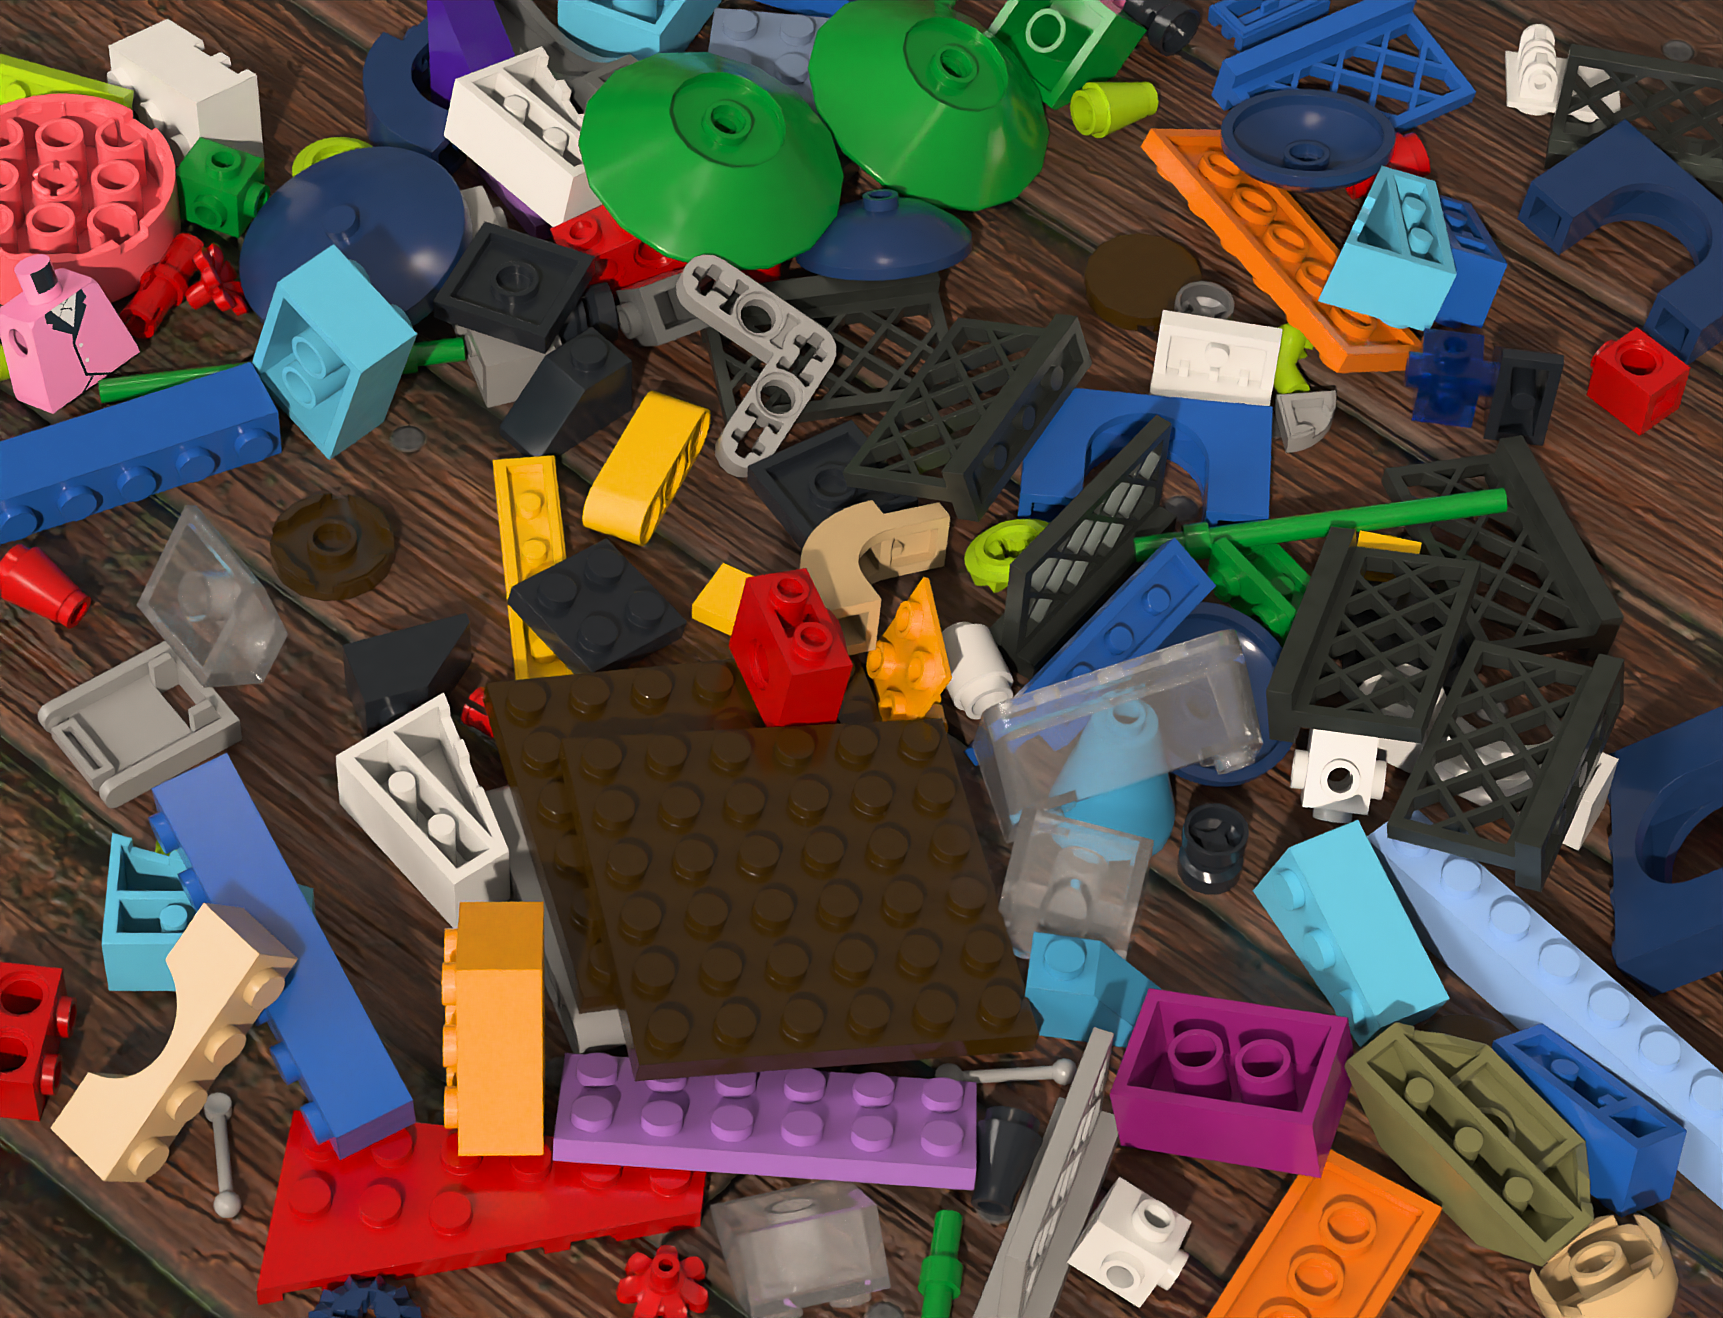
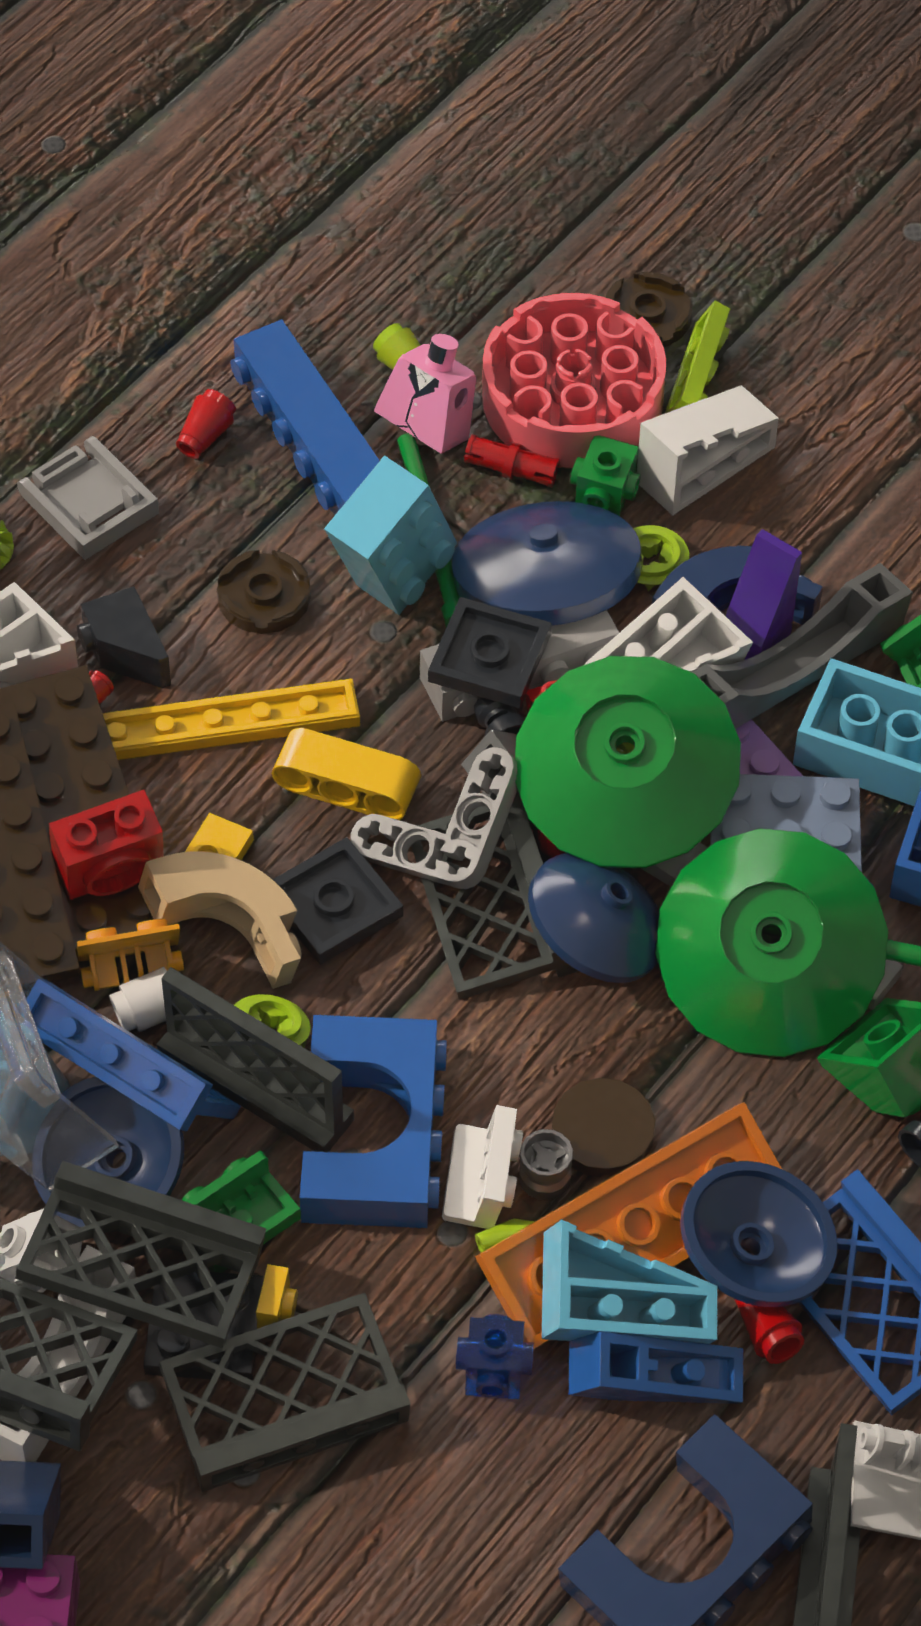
camera: 90 degrees right, 5 degrees up
(212, 607) = (169, 512): clear slope -> none
(216, 283) = (515, 488): red plant -> none
(570, 397) = (416, 721): black slope -> none
(596, 611) = (194, 750): black plate -> none
(1005, 423) = (385, 994): pearl dark grey fence -> none
(1110, 106) = (813, 1098): lime cone -> none
(1198, 537) = (282, 1157): green bar -> none
(1304, 418) = (454, 1254): light grey tile -> none
(1521, 394) = (483, 1413): black slope -> none
(1637, 380) = (508, 1545): red brick -> none

